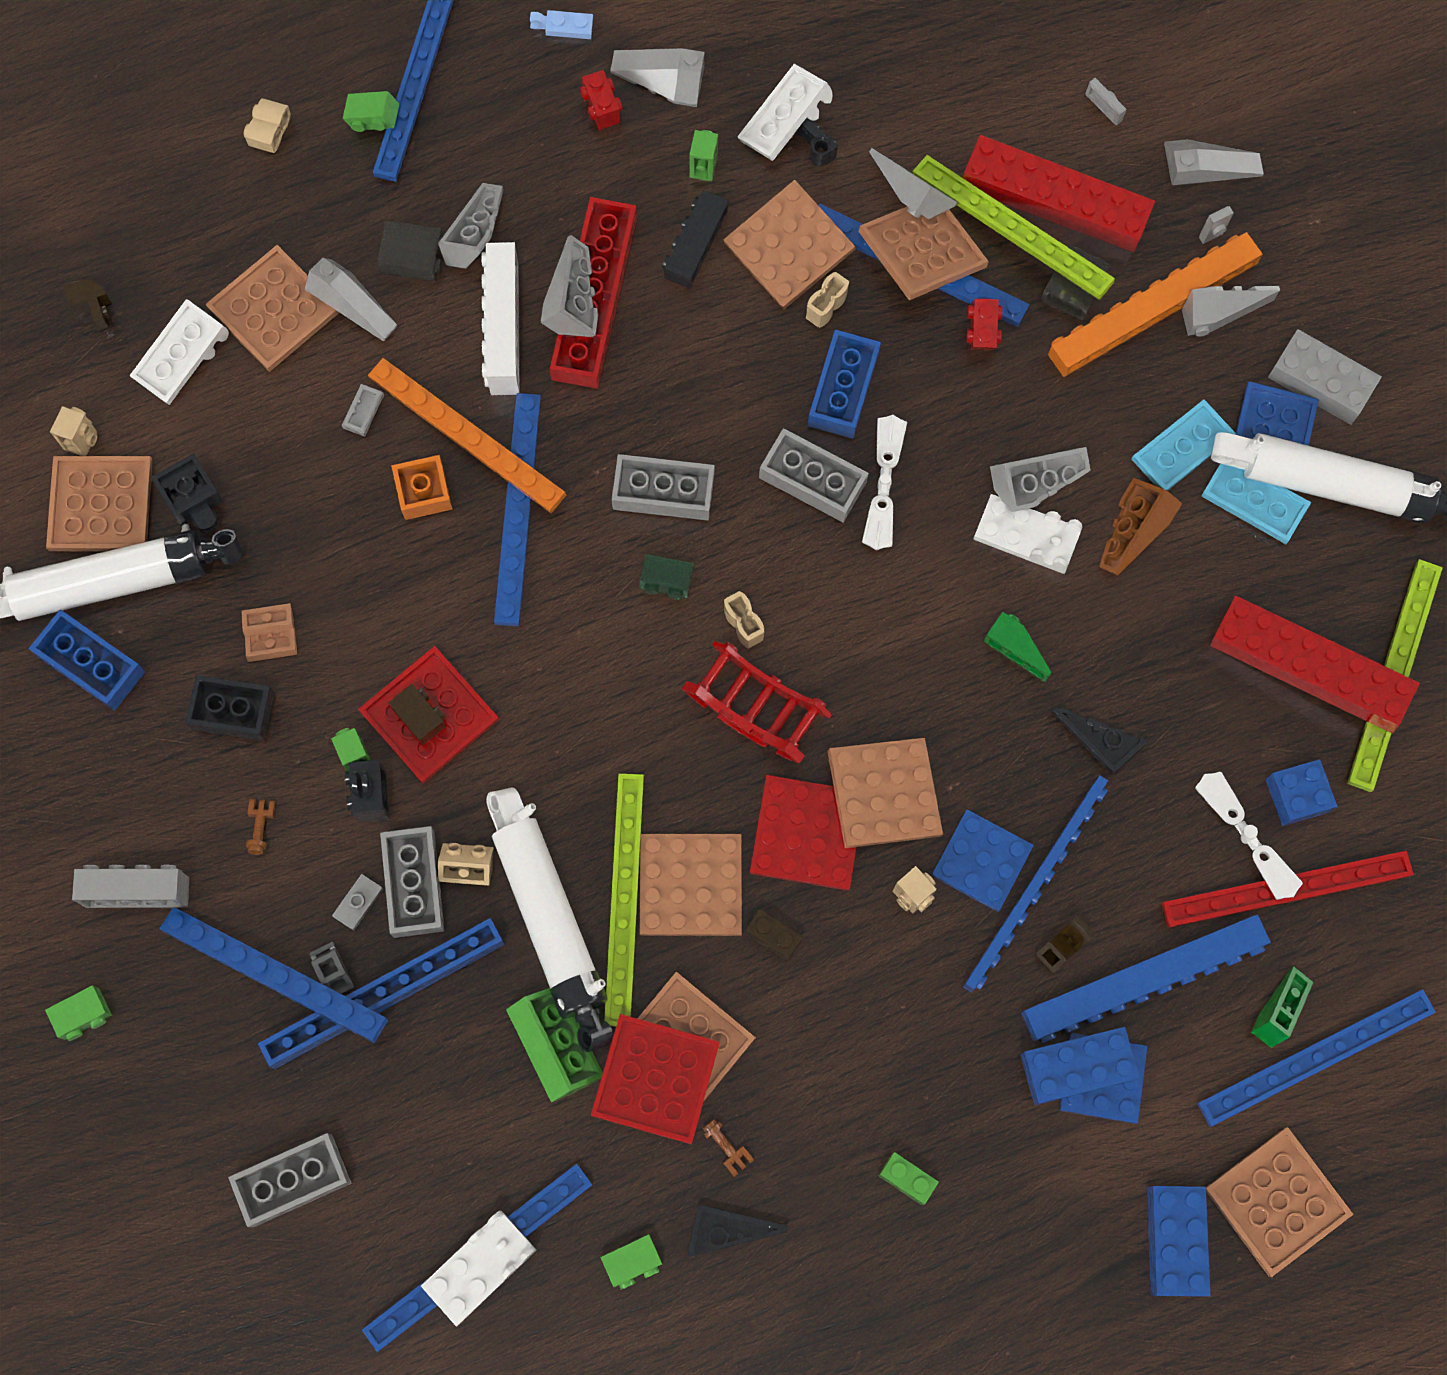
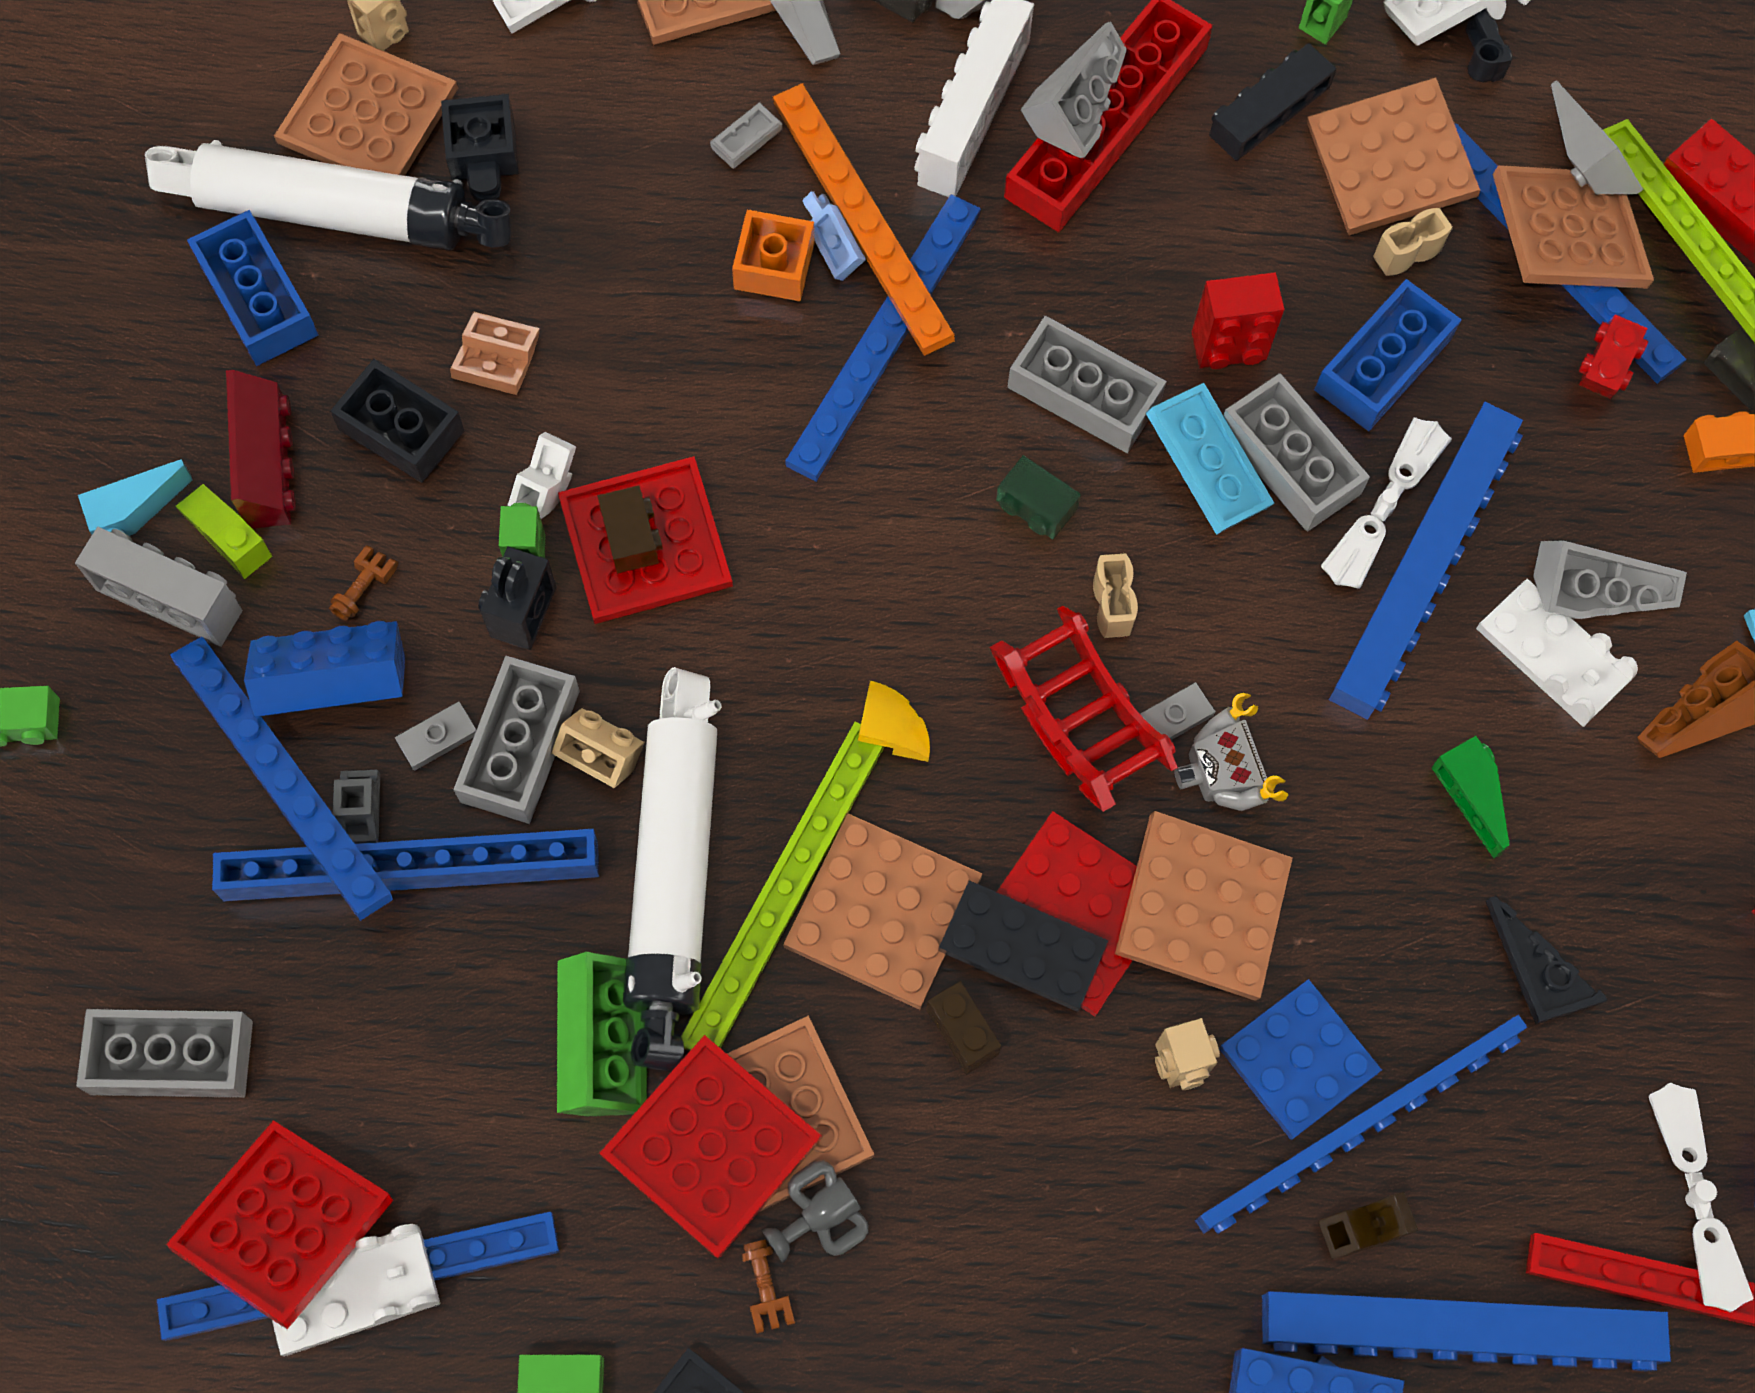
camera: 25 degrees right, 5 degrees down
(80, 841) = (134, 500): none -> medium azure slope
(149, 768) = (259, 450): none -> dark red slope
(151, 830) = (225, 530): none -> lime slope
(267, 893) = (325, 668): none -> blue brick
(345, 702) = (545, 476): none -> white brick
(416, 1249) = (280, 1224): none -> red plate
(453, 456) = (833, 236): none -> light blue plate
(642, 763) = (893, 723): none -> yellow brick
(740, 1086) = (820, 1213): none -> dark grey piece
(741, 405) = (1237, 320): none -> red brick
(763, 503) = (1209, 458): none -> medium azure plate
(787, 868) = (1023, 945): none -> black plate
(815, 677) = (1179, 712): none -> light grey plate
(860, 696) = (1228, 762): none -> light grey torso
(925, 508) = (1425, 562): none -> blue brick

